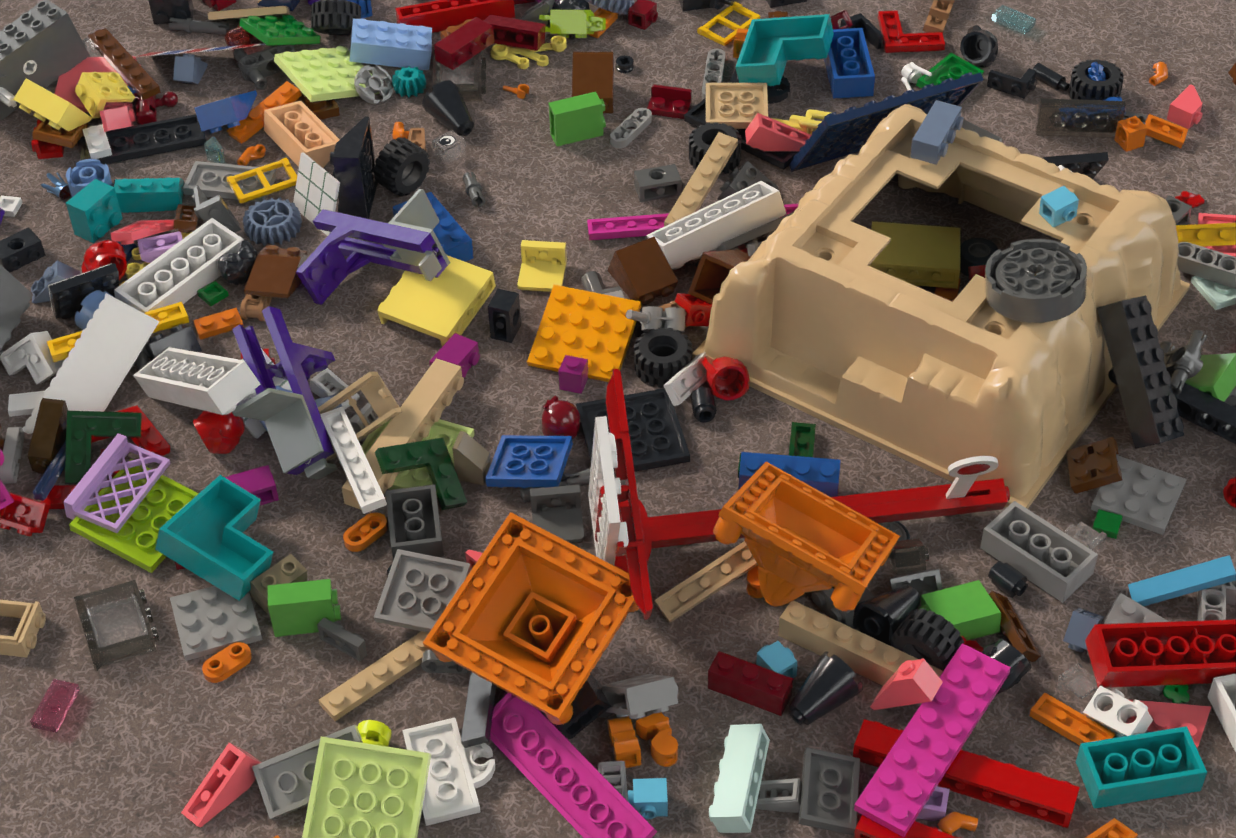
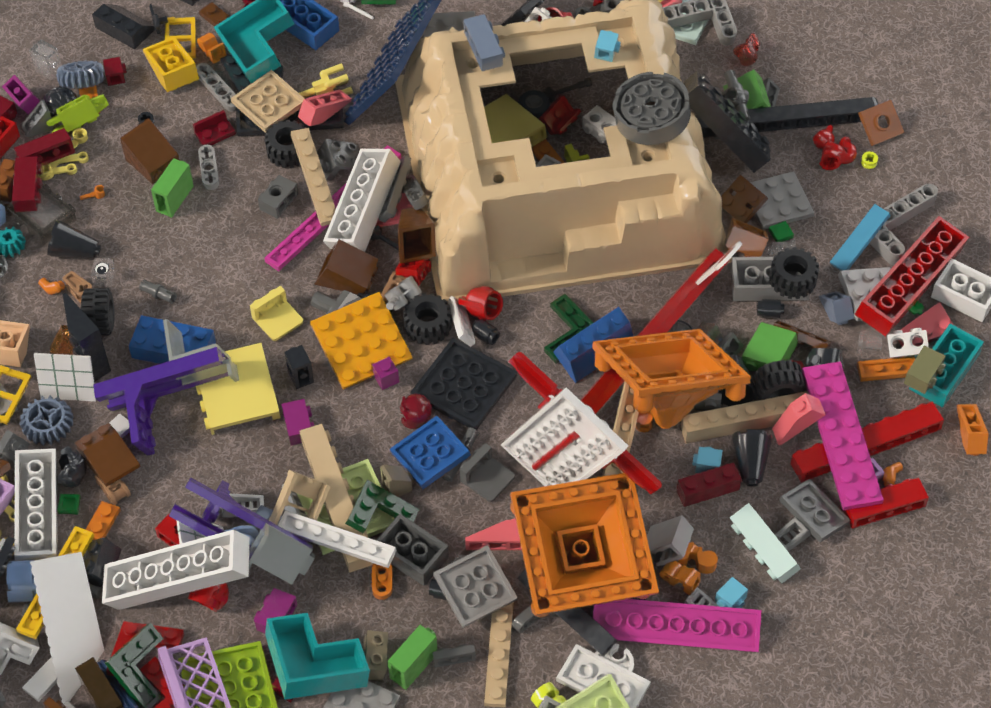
camera: 45 degrees left, 10 degrees up
(692, 34) = (171, 64): none -> yellow slope
(1051, 567) = (797, 261): none -> black tyre
(1055, 499) = (751, 237): none -> dark orange slope
(1097, 743) = (925, 369): none -> olive brick

